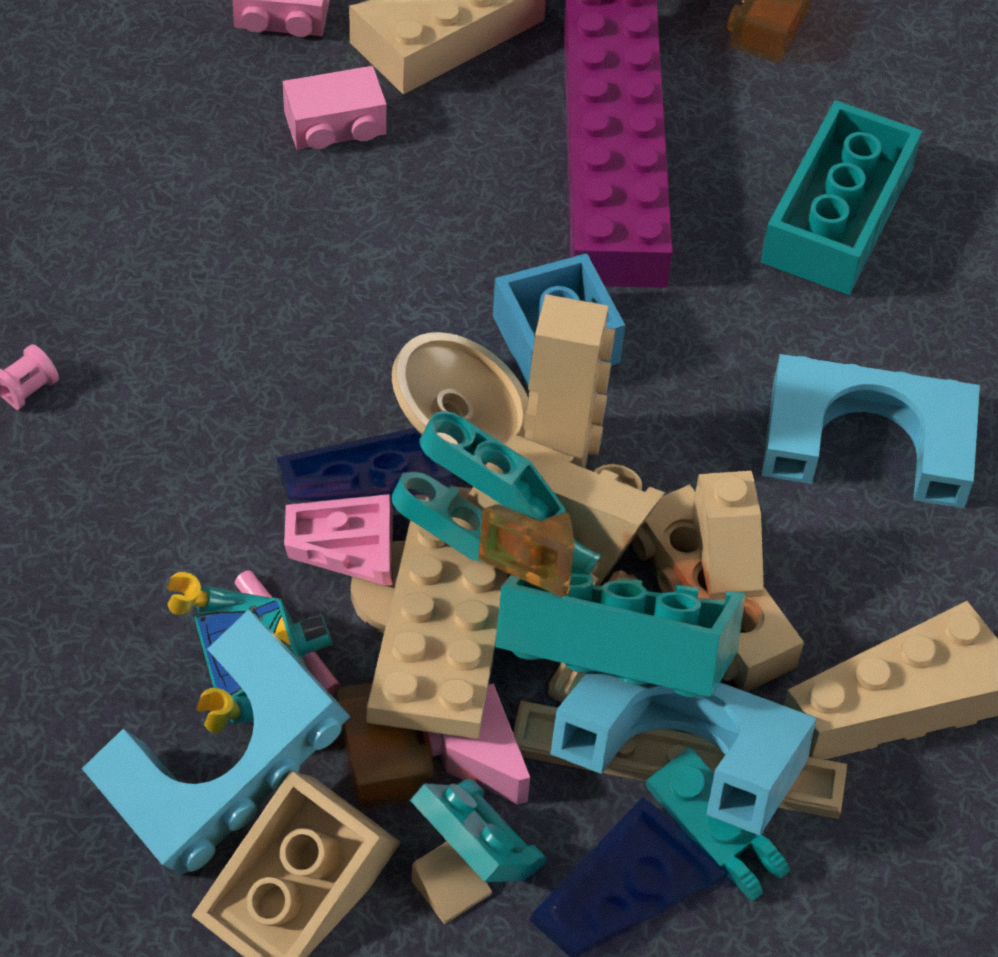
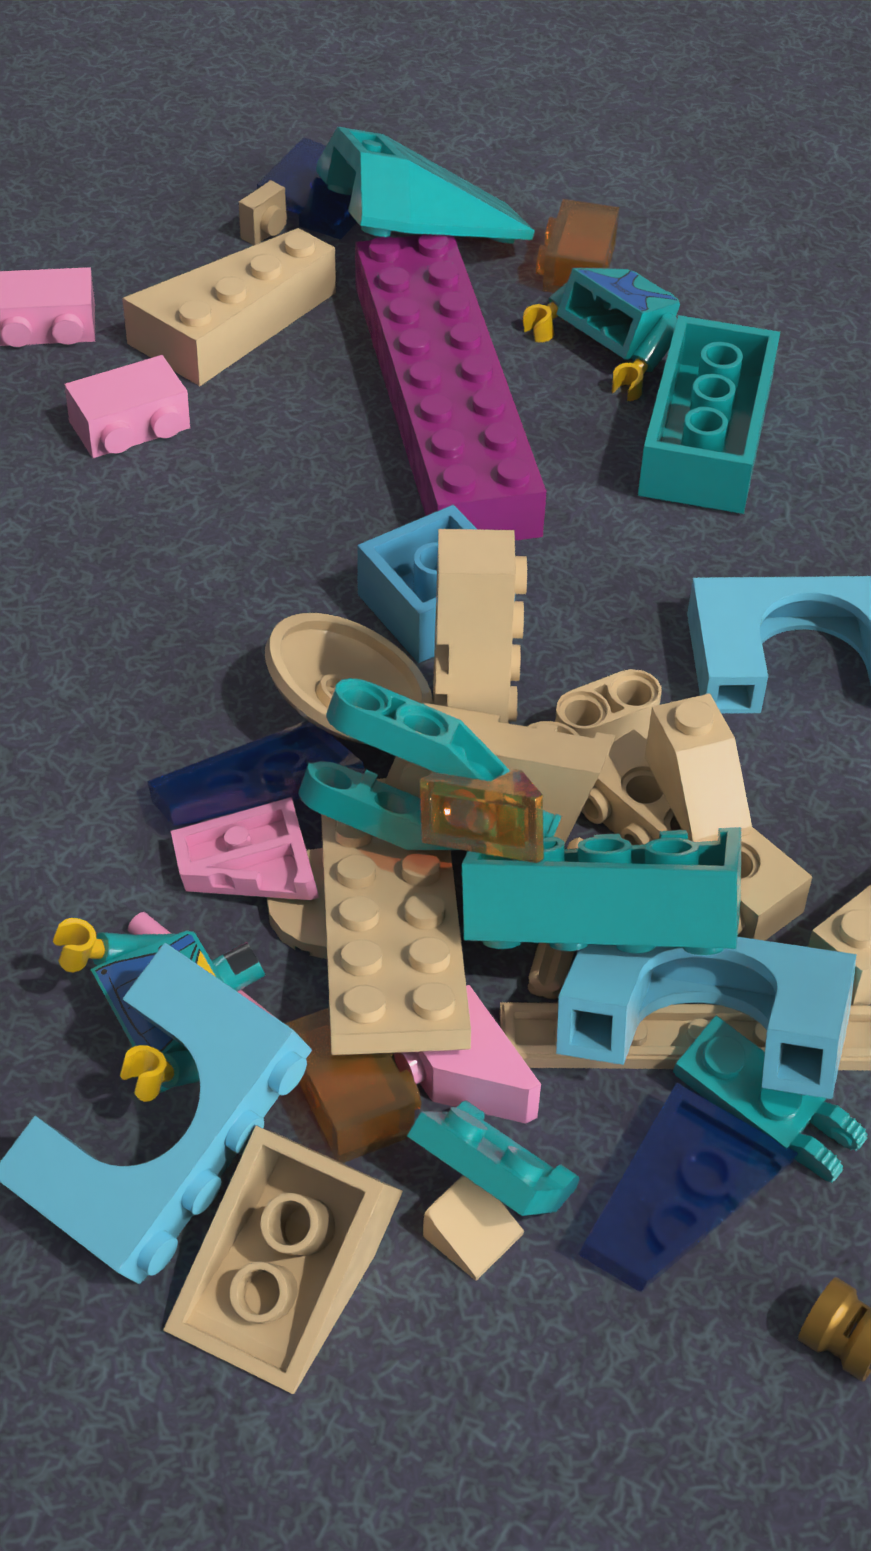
camera: 10 degrees left, 5 degrees down
(676, 460) = (611, 704): none -> tan beam
(787, 84) = (618, 312): none -> teal torso

